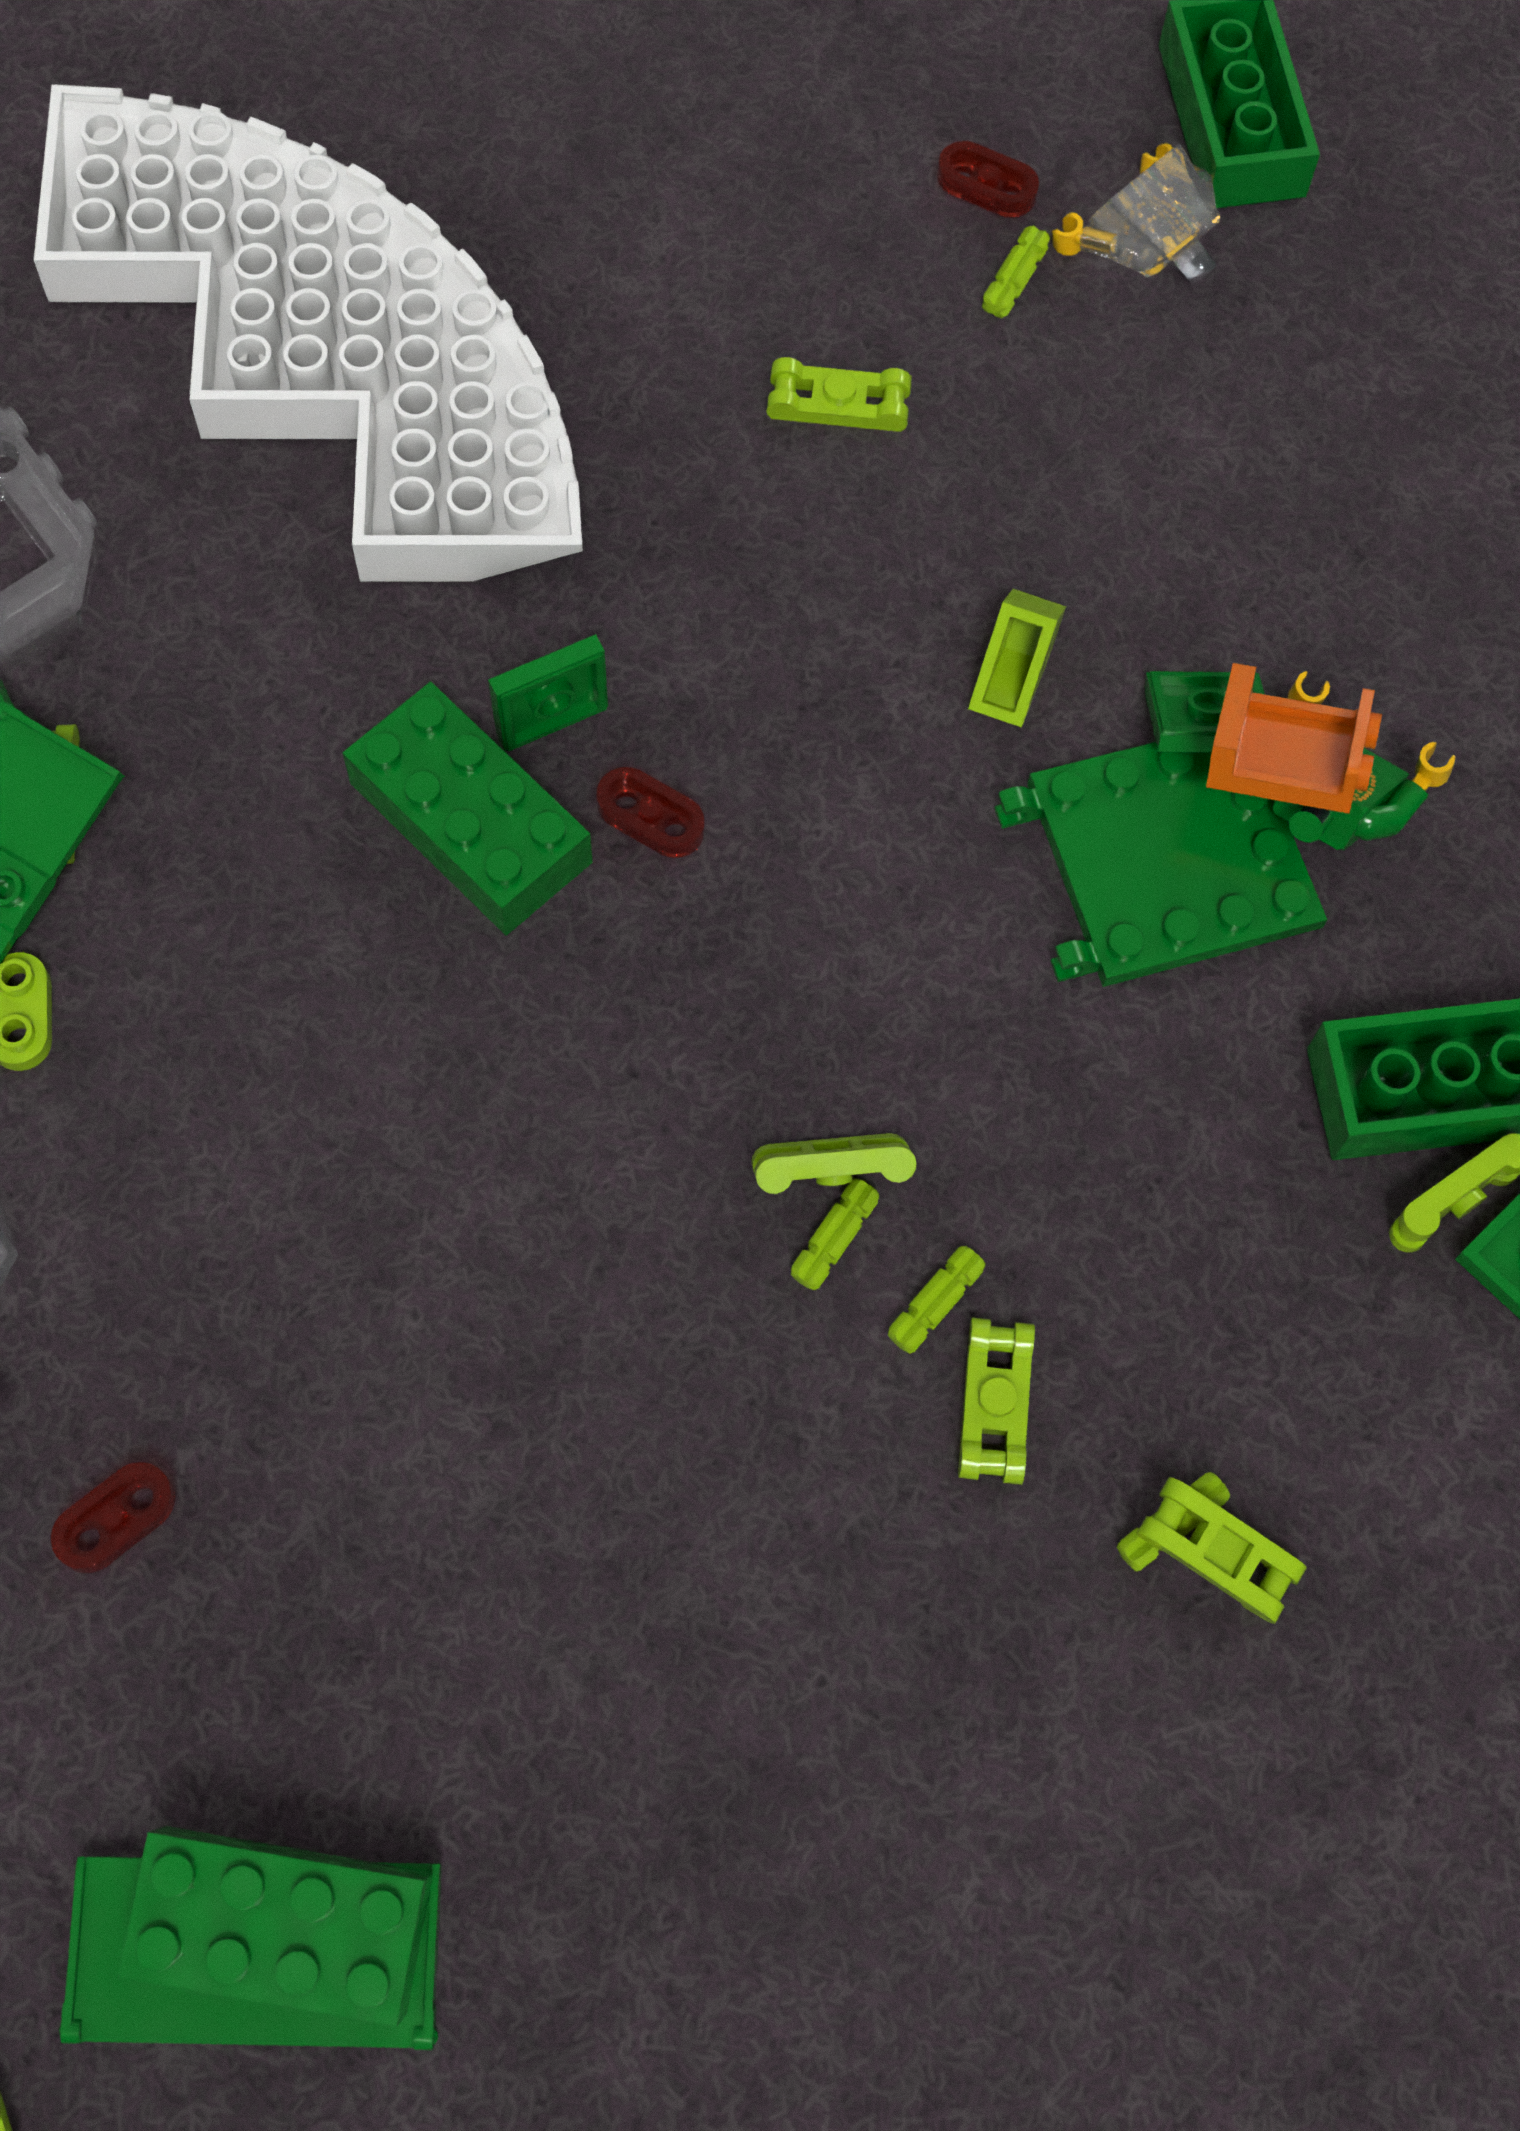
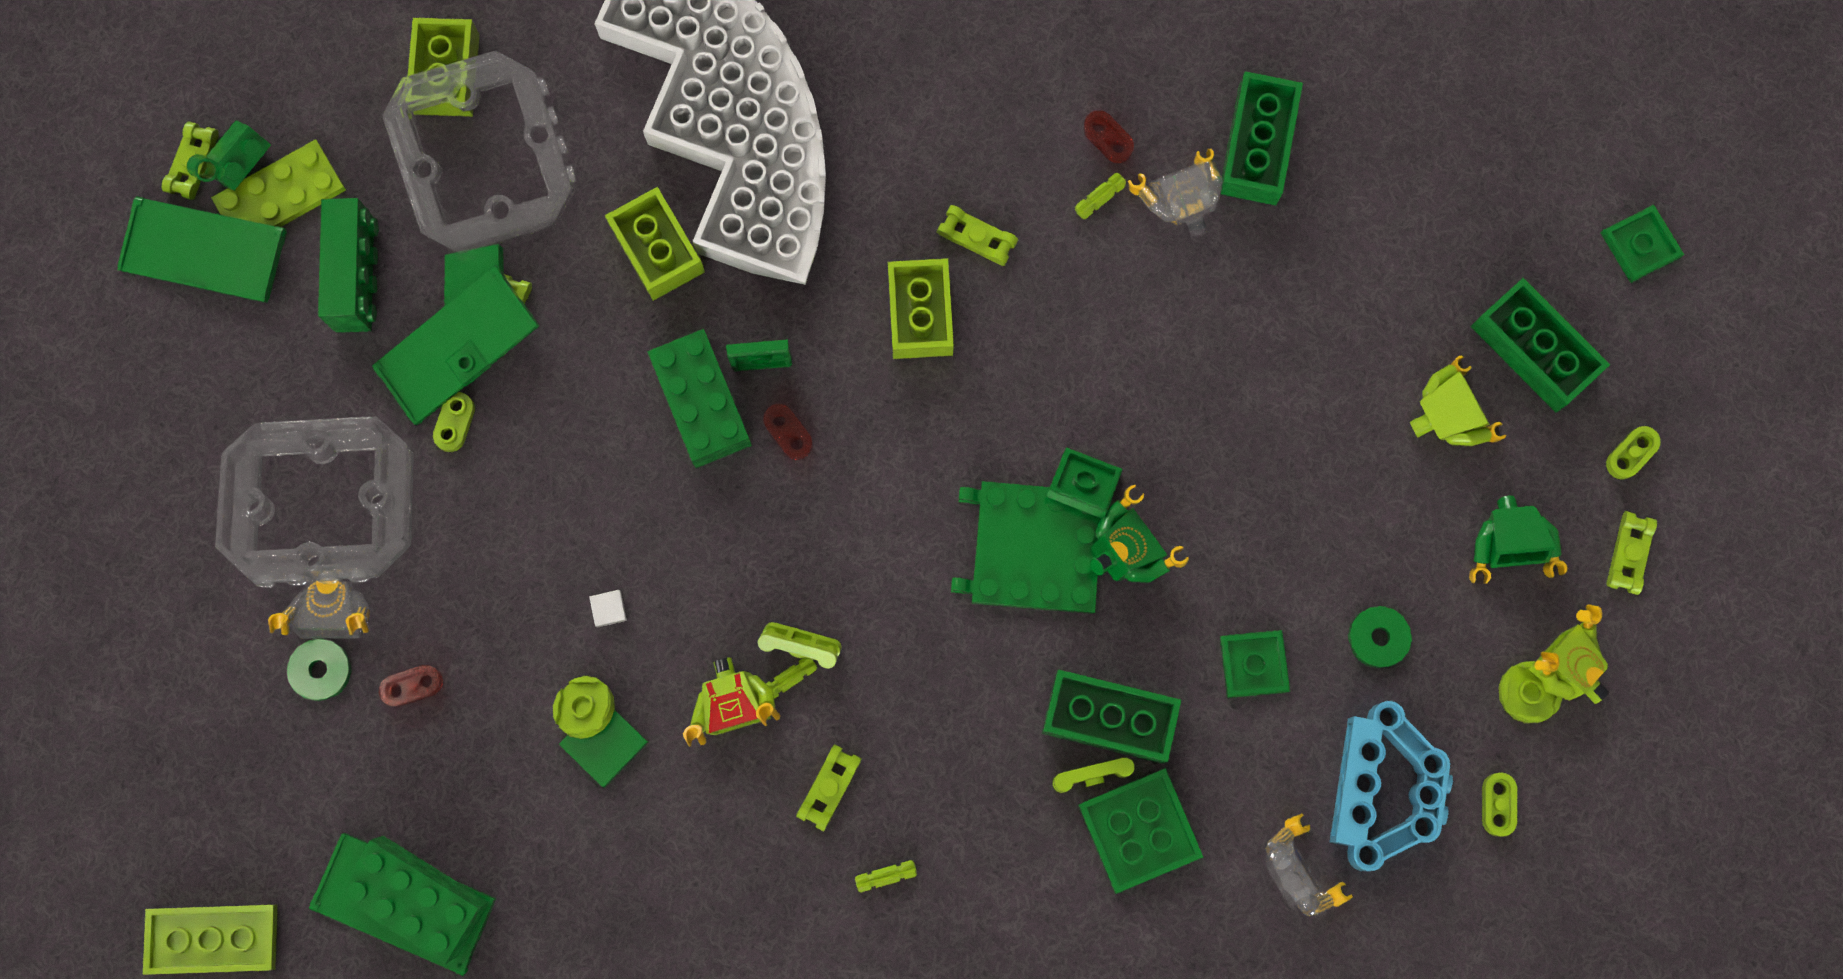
camera: 25 degrees right, 10 degrees up
(282, 580) = (655, 243): none -> lime brick
(444, 1235) = (608, 608): none -> white tile
(471, 1428) = (583, 707): none -> lime tile
(535, 1483) = (607, 751): none -> green tile
(753, 1310) = (730, 703): none -> torso
(799, 530) = (920, 308): none -> lime brick
(936, 1299) = (822, 728): lime axle -> none
(1016, 657) = (1003, 415): lime slope -> none
(1222, 1550) = (898, 900): lime plate -> none
(1291, 747) = (1104, 524): orange panel -> none

